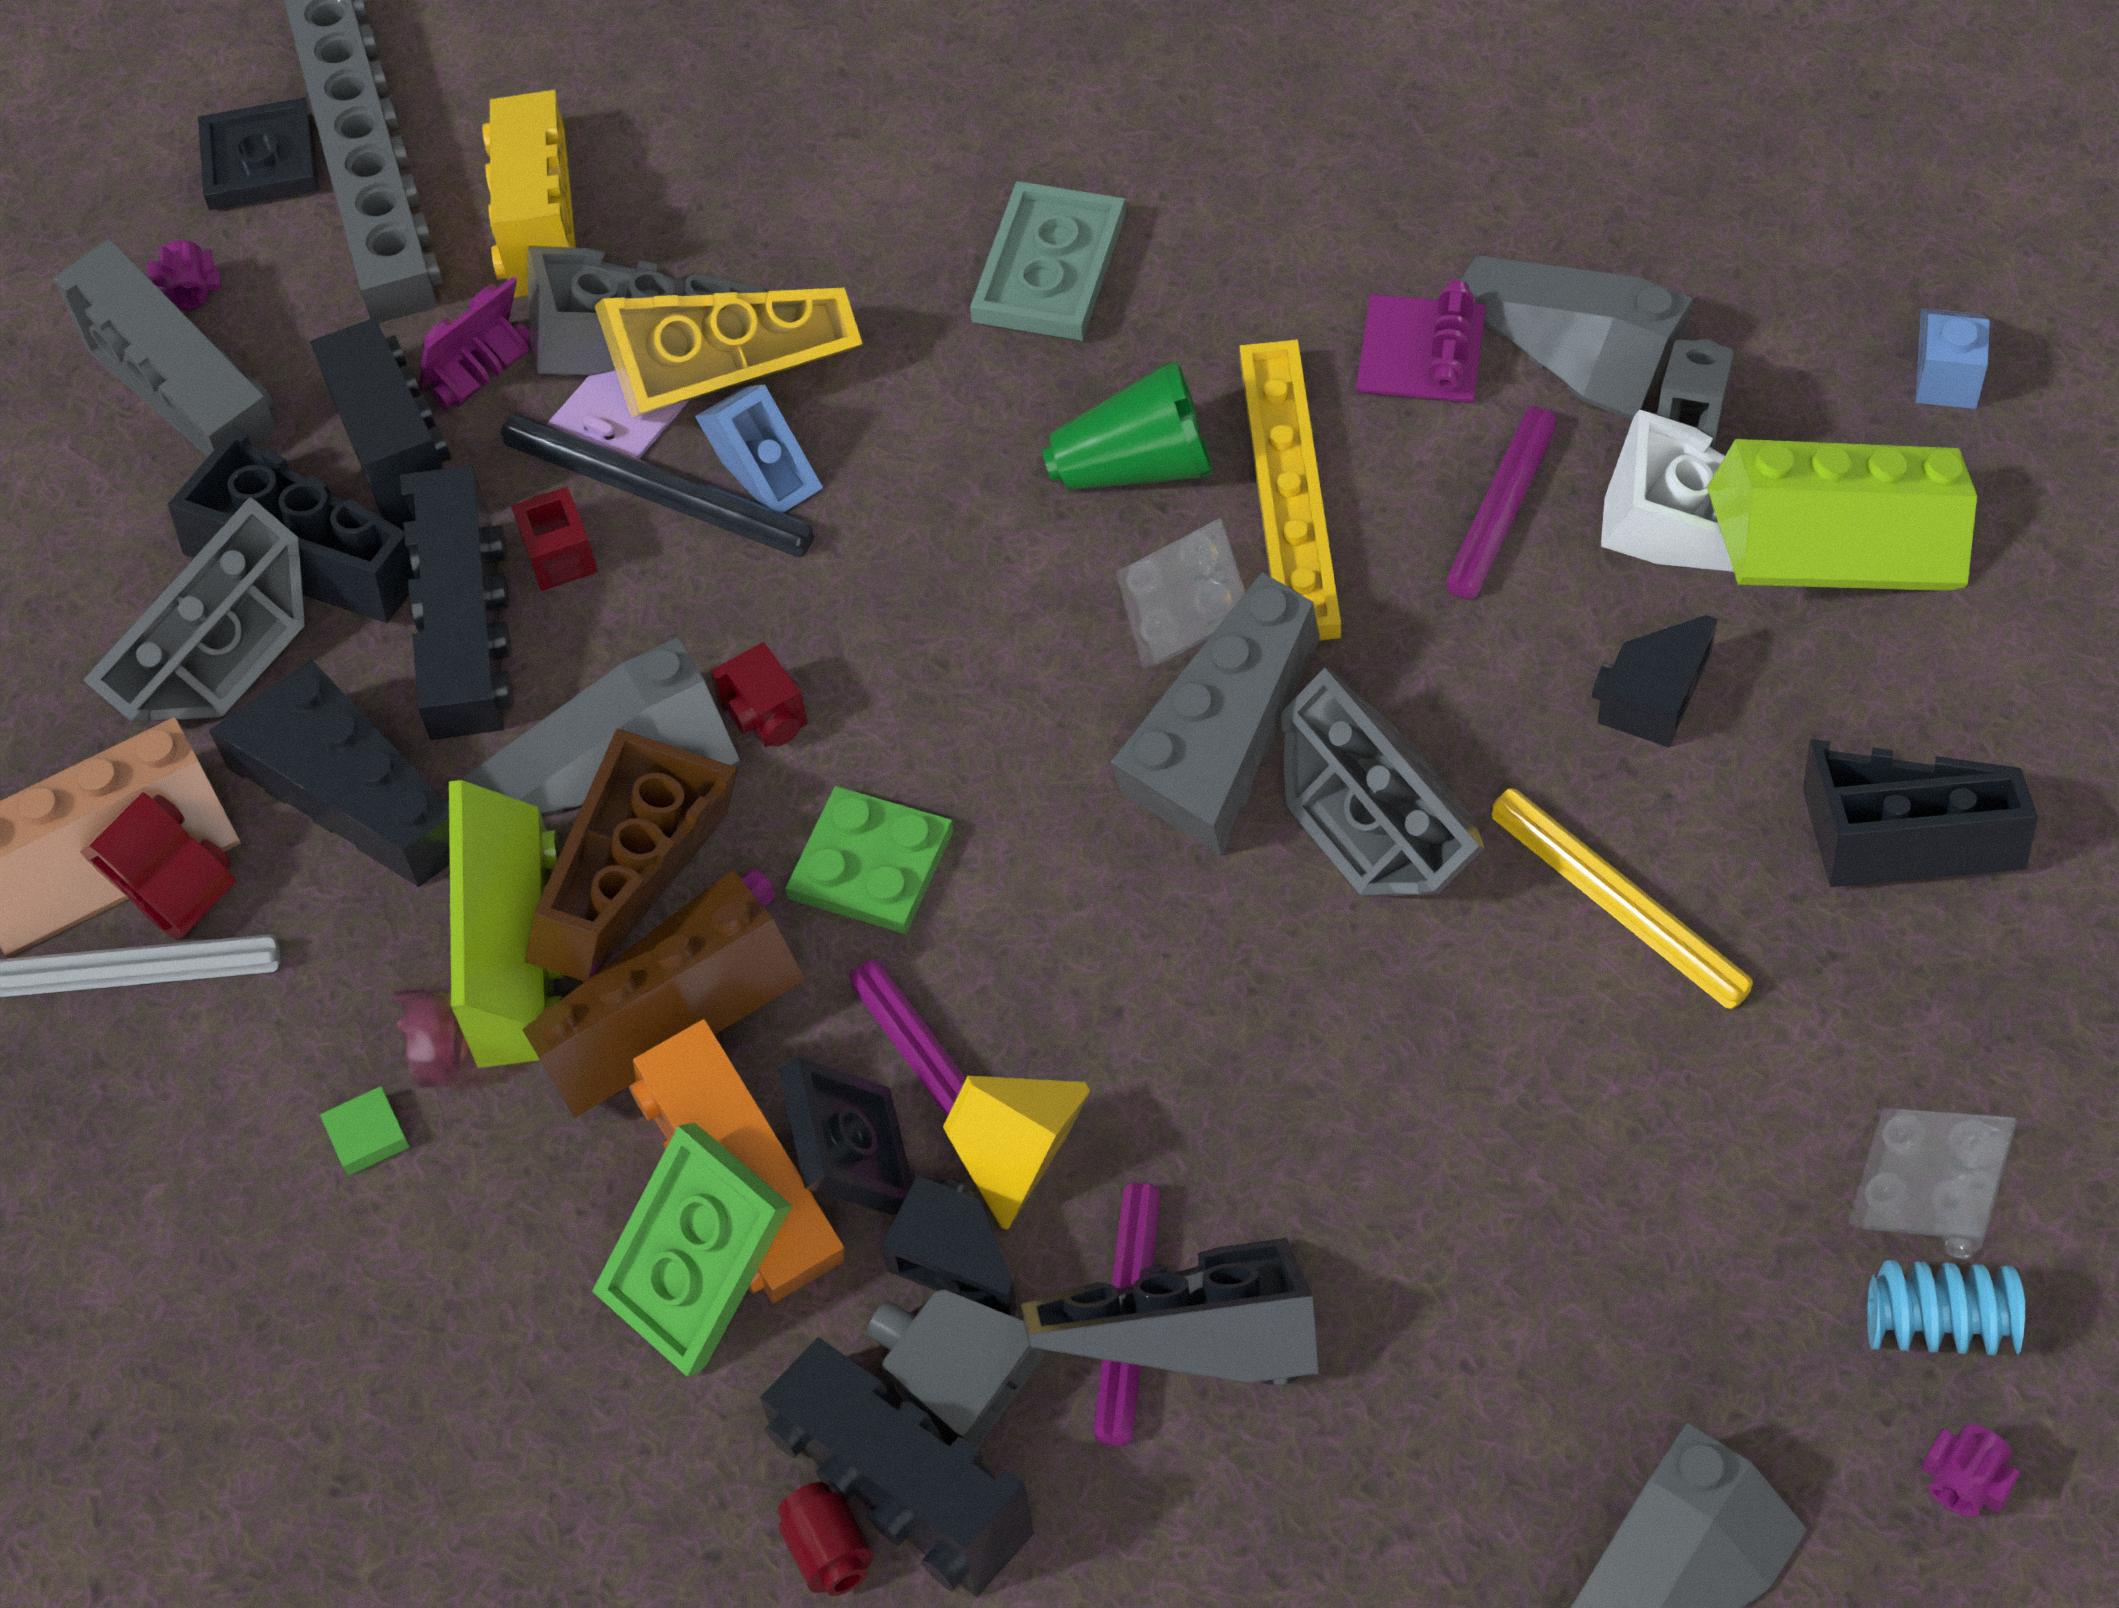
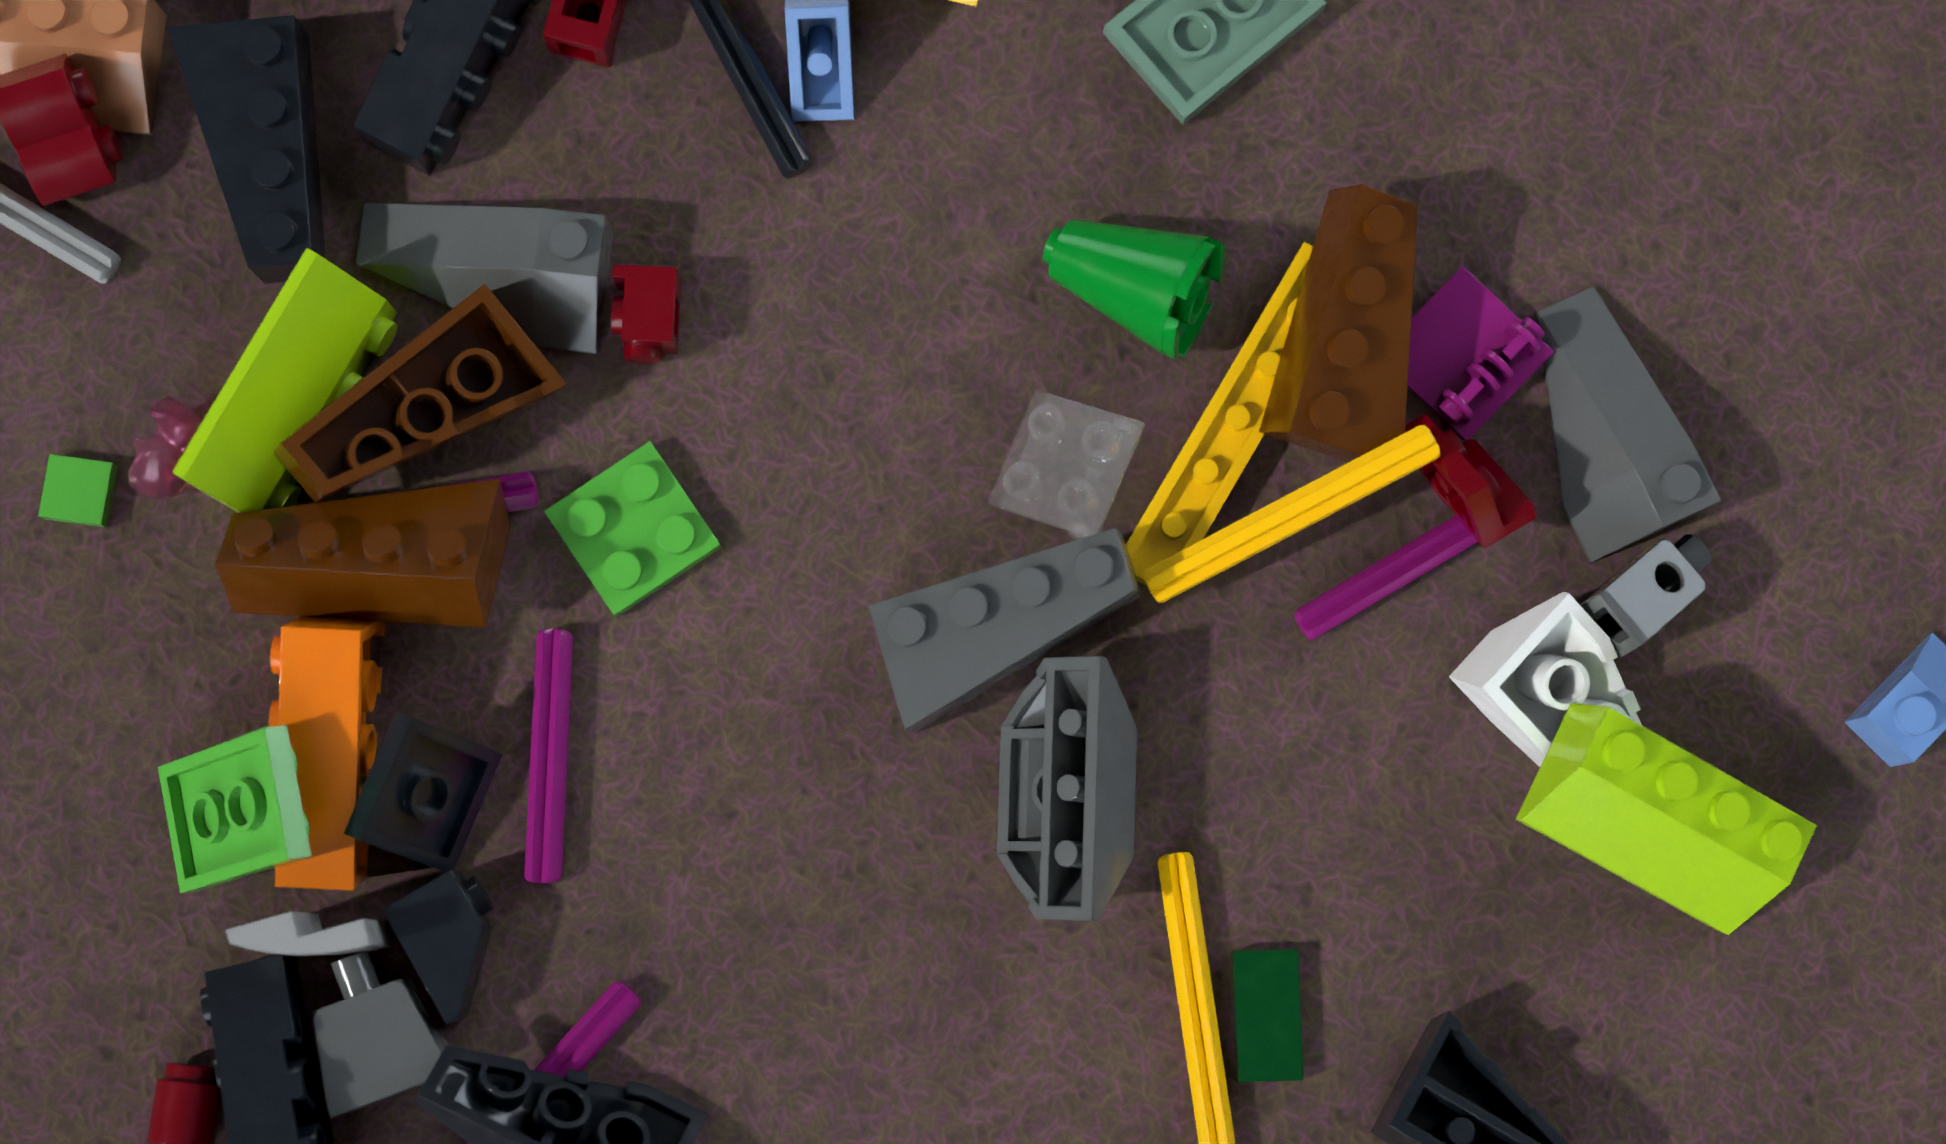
camera: 25 degrees right, 25 degrees up
(836, 1305) = (303, 935): none -> light grey slope
(1011, 1134) = (553, 889): yellow slope -> none
(1329, 369) = (1350, 332): none -> reddish brown wedge
(1386, 497) = (1292, 513): none -> yellow axle
(1494, 405) = (1475, 487): none -> dark red bracket
(1654, 680) = (1384, 843): black slope -> none
(1675, 863) = (1267, 1015): none -> dark green tile

